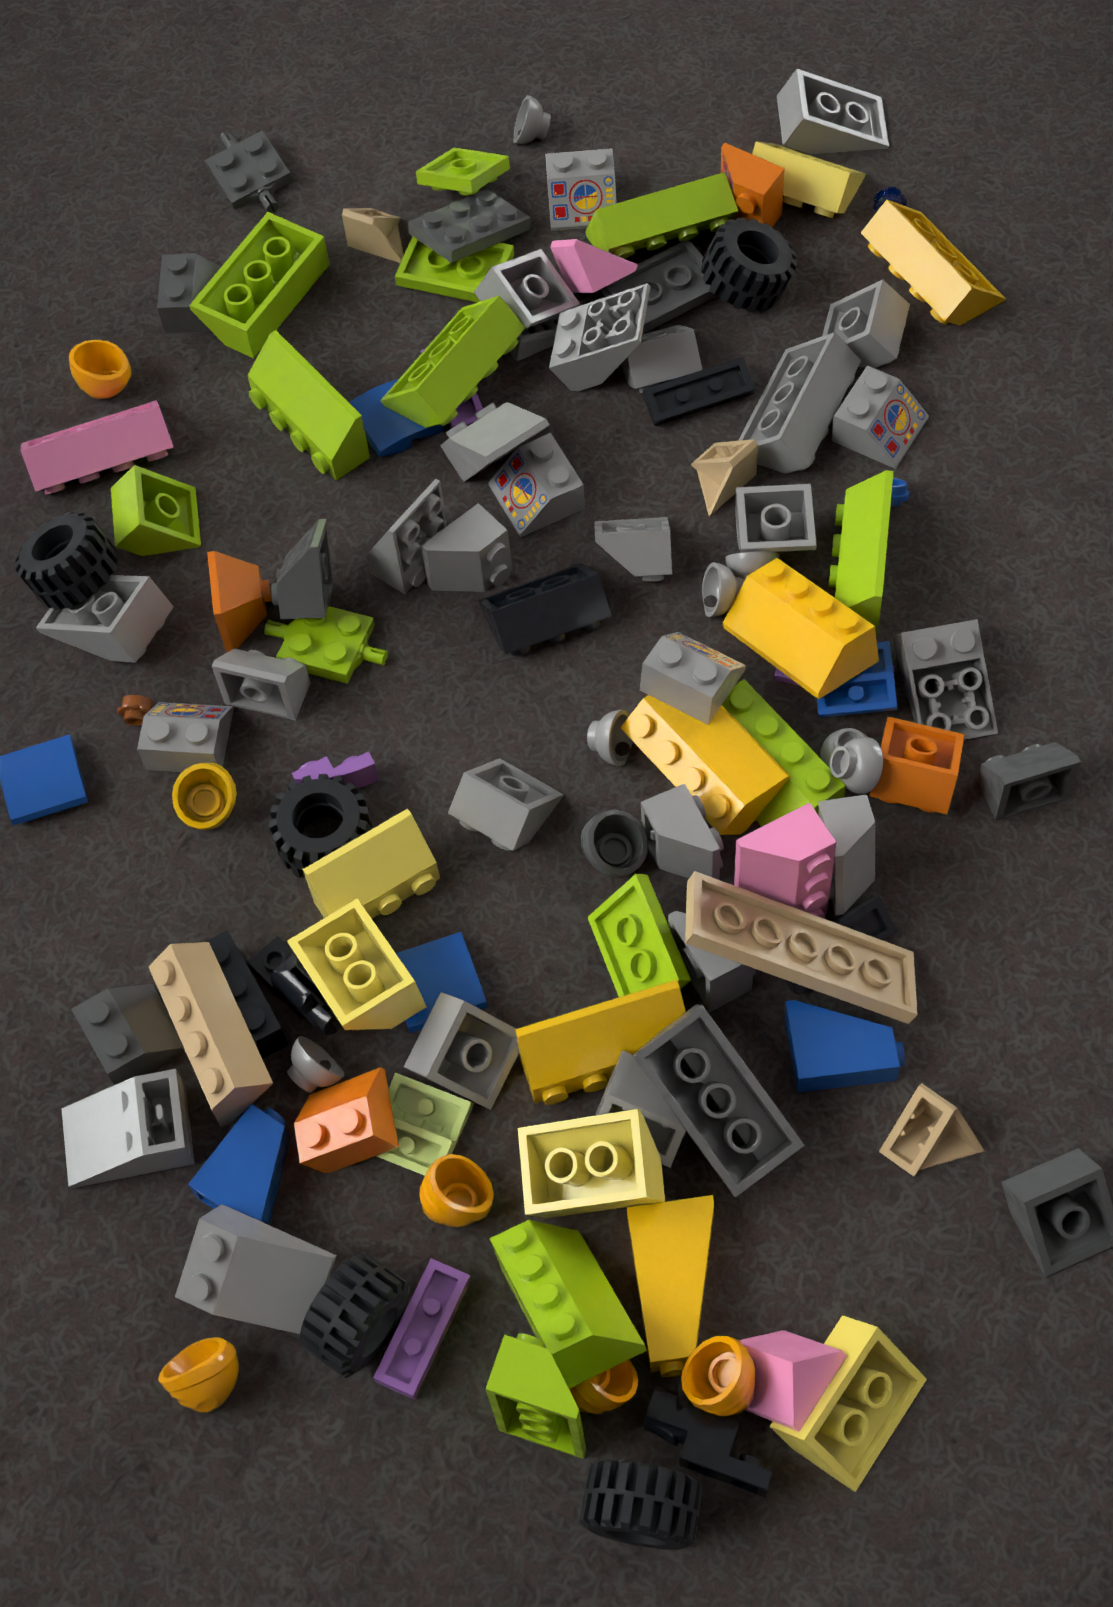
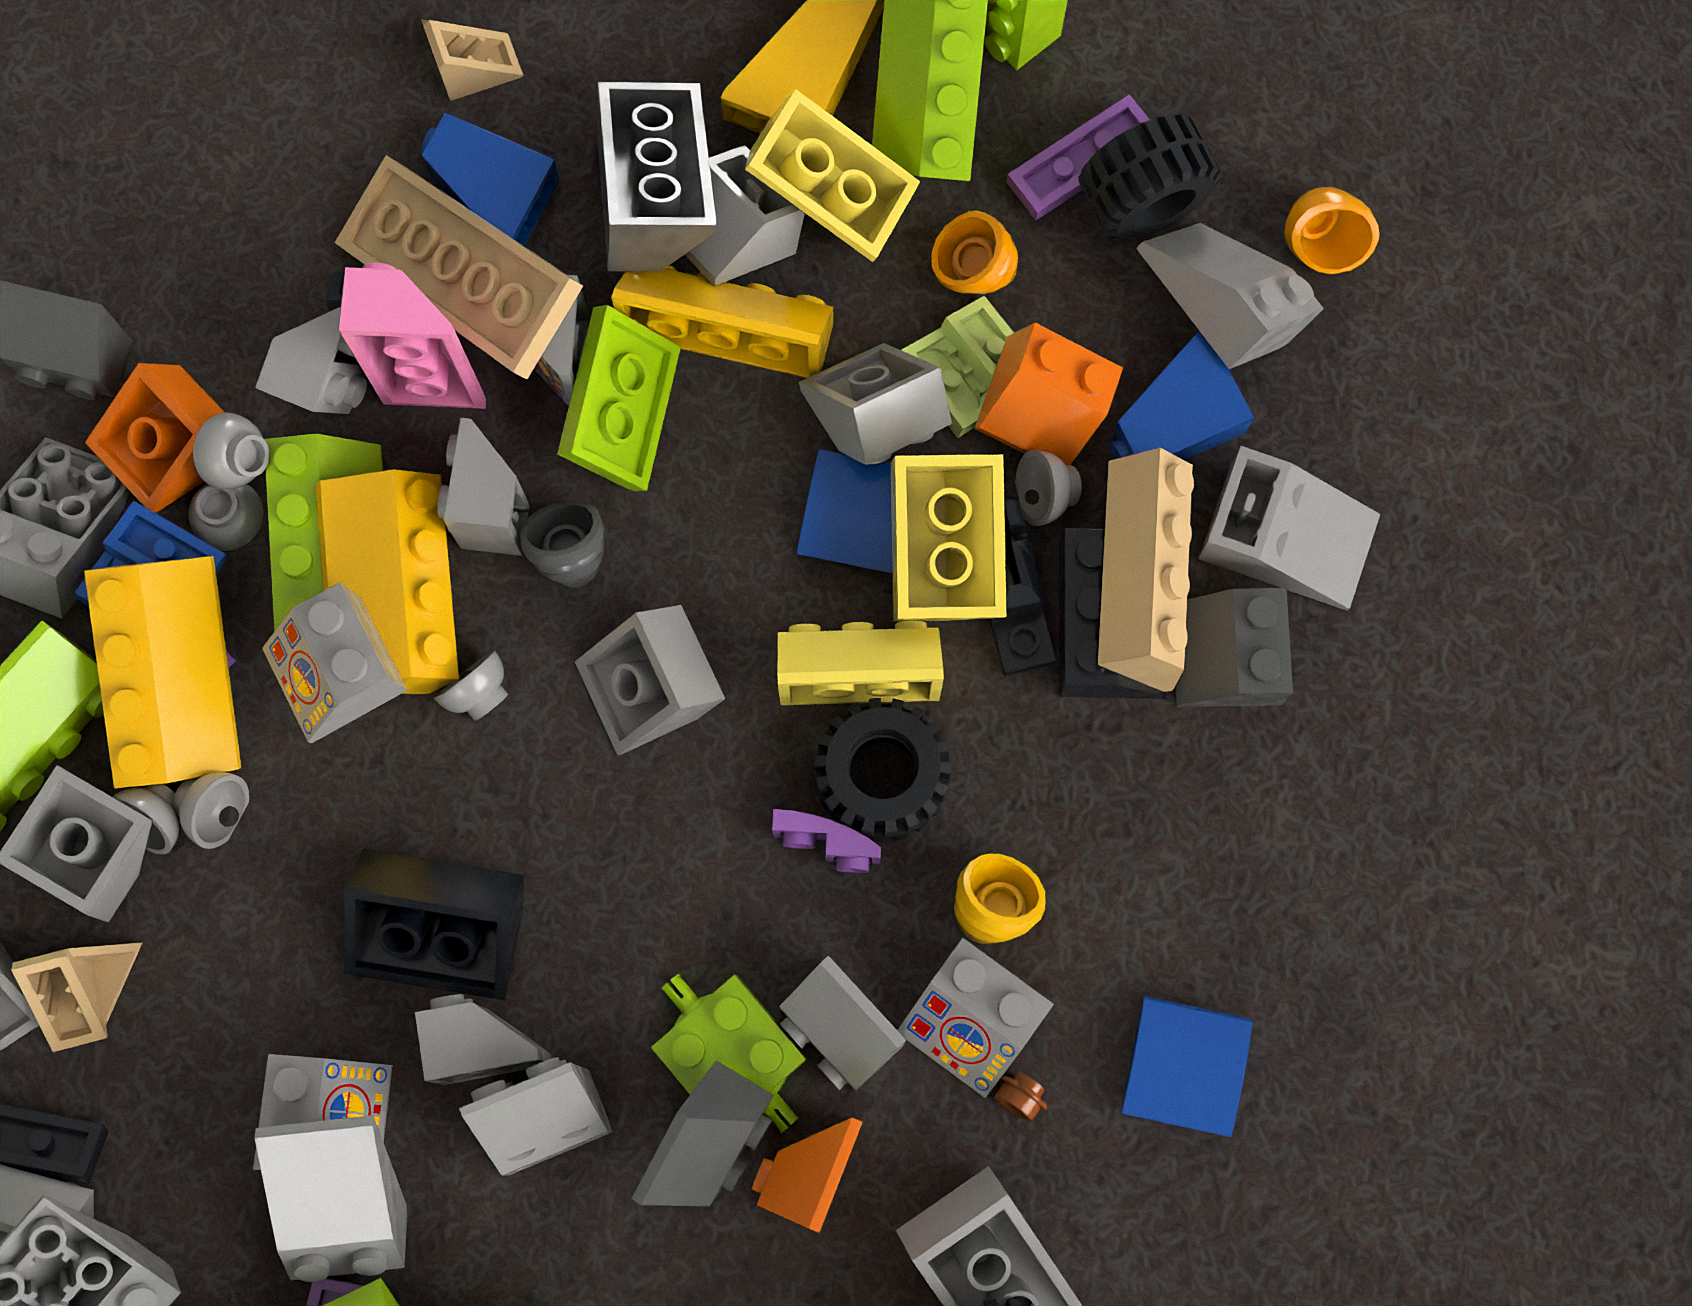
camera: 155 degrees left, 15 degrees up
(638, 545) = (257, 943): light grey slope -> none

